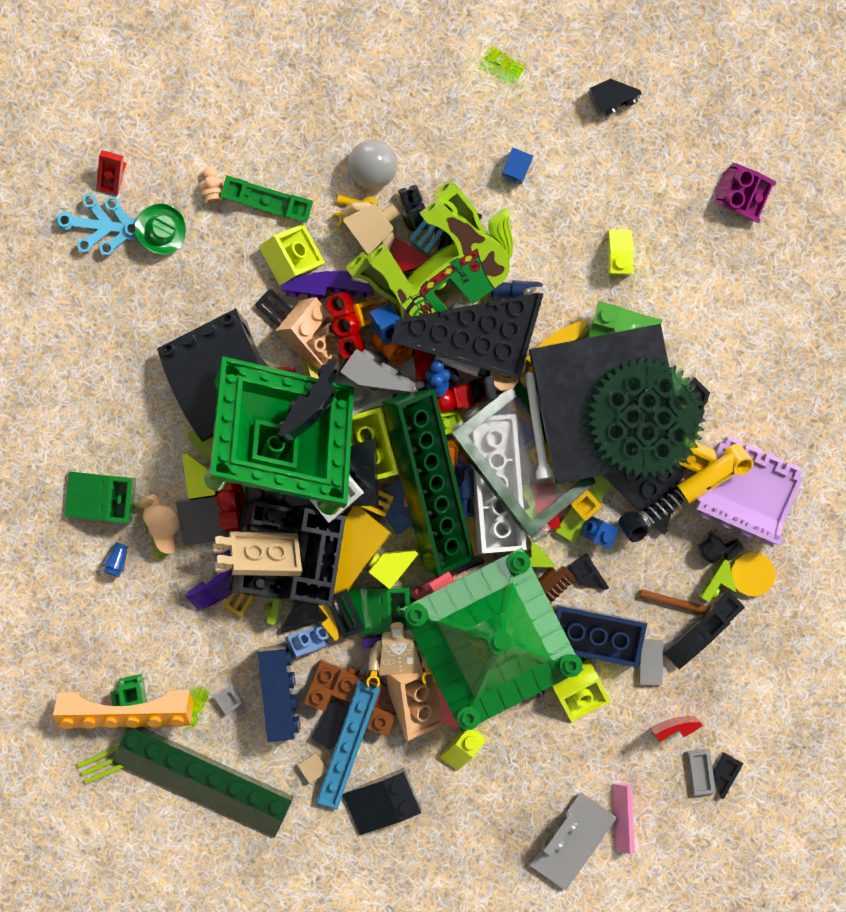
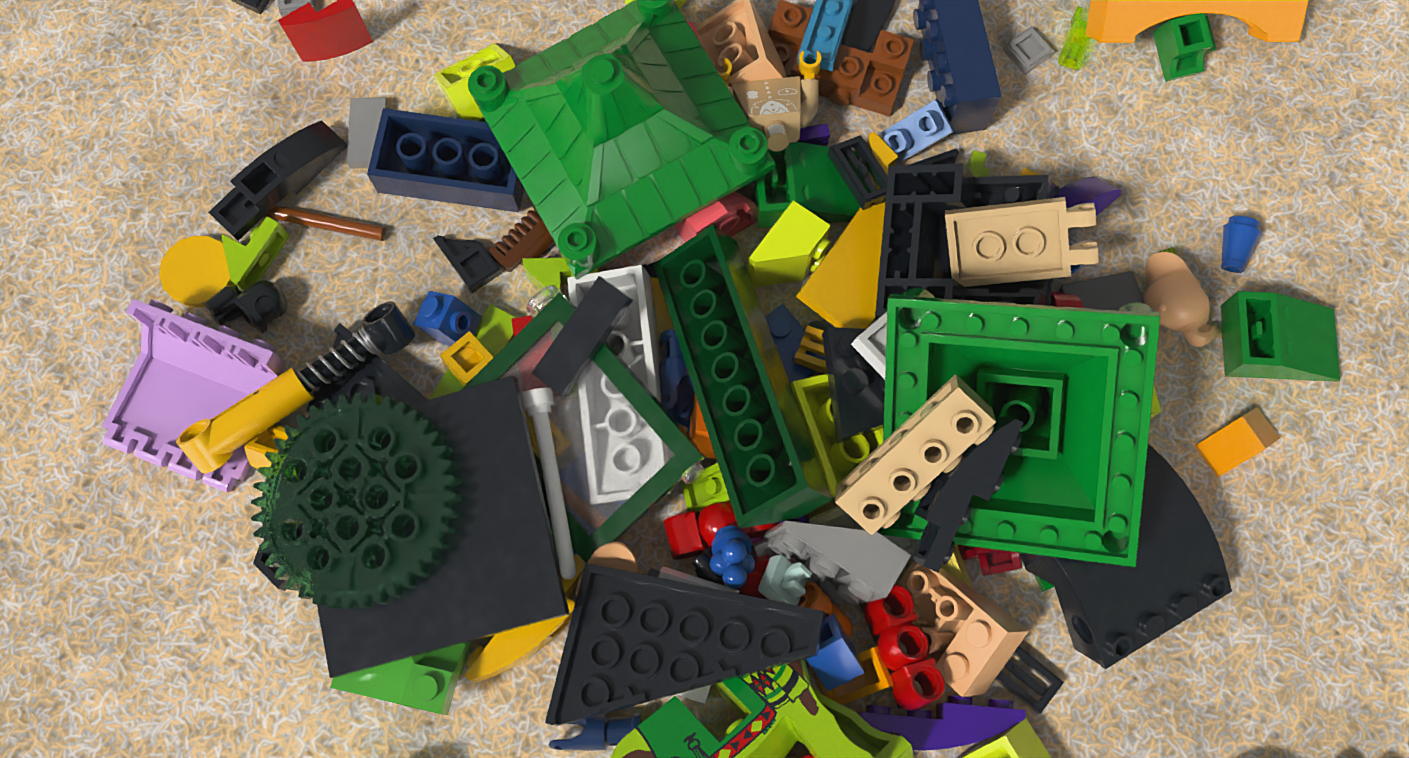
camera: 175 degrees right, 15 degrees down
(134, 437) = (1237, 442): none -> light orange slope
(336, 421) = (915, 455): none -> tan brick
(409, 363) = (784, 580): none -> light aqua tile
(483, 389) = (649, 546): black tile -> none
(517, 507) = (582, 336): none -> black tile

